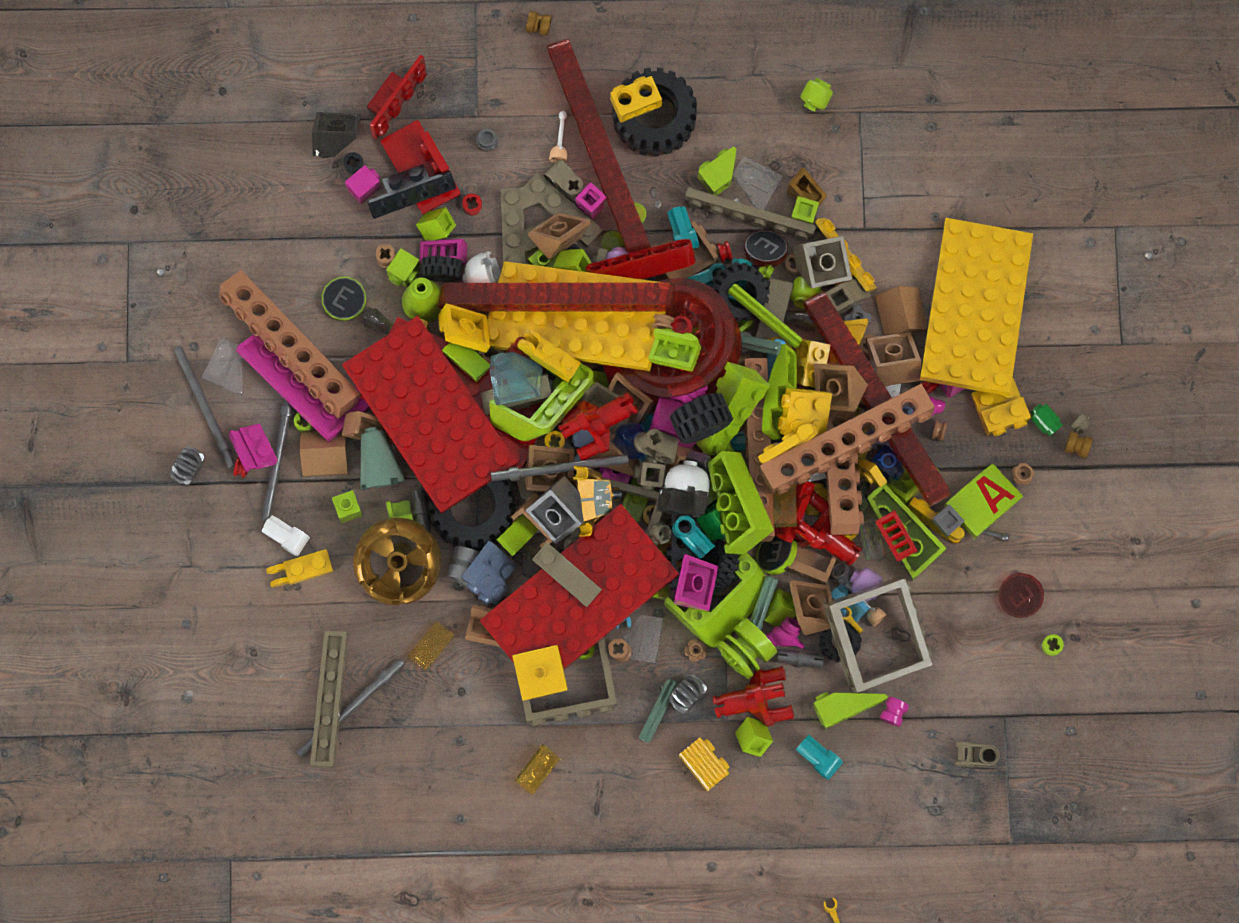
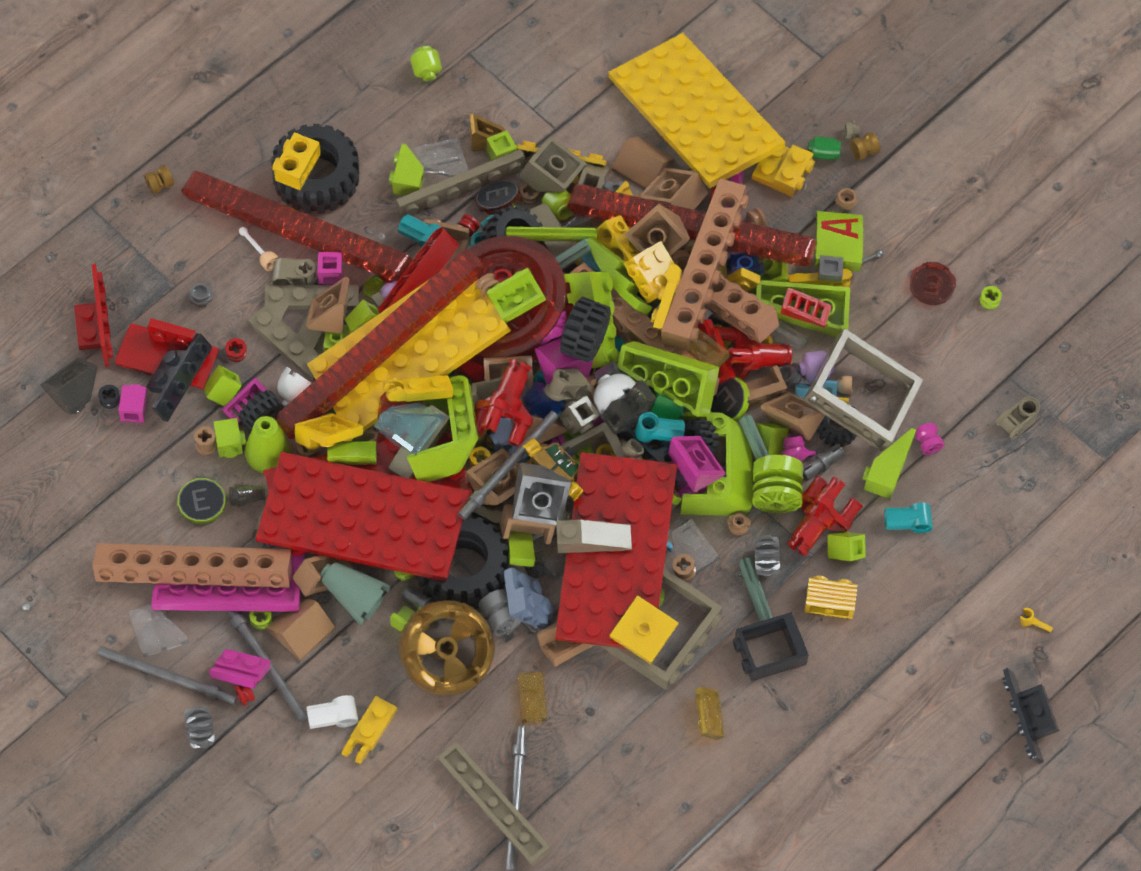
camera: 45 degrees left, 15 degrees down
(347, 506) = (361, 648): lime brick -> none
(606, 741) = (796, 644): none -> black window

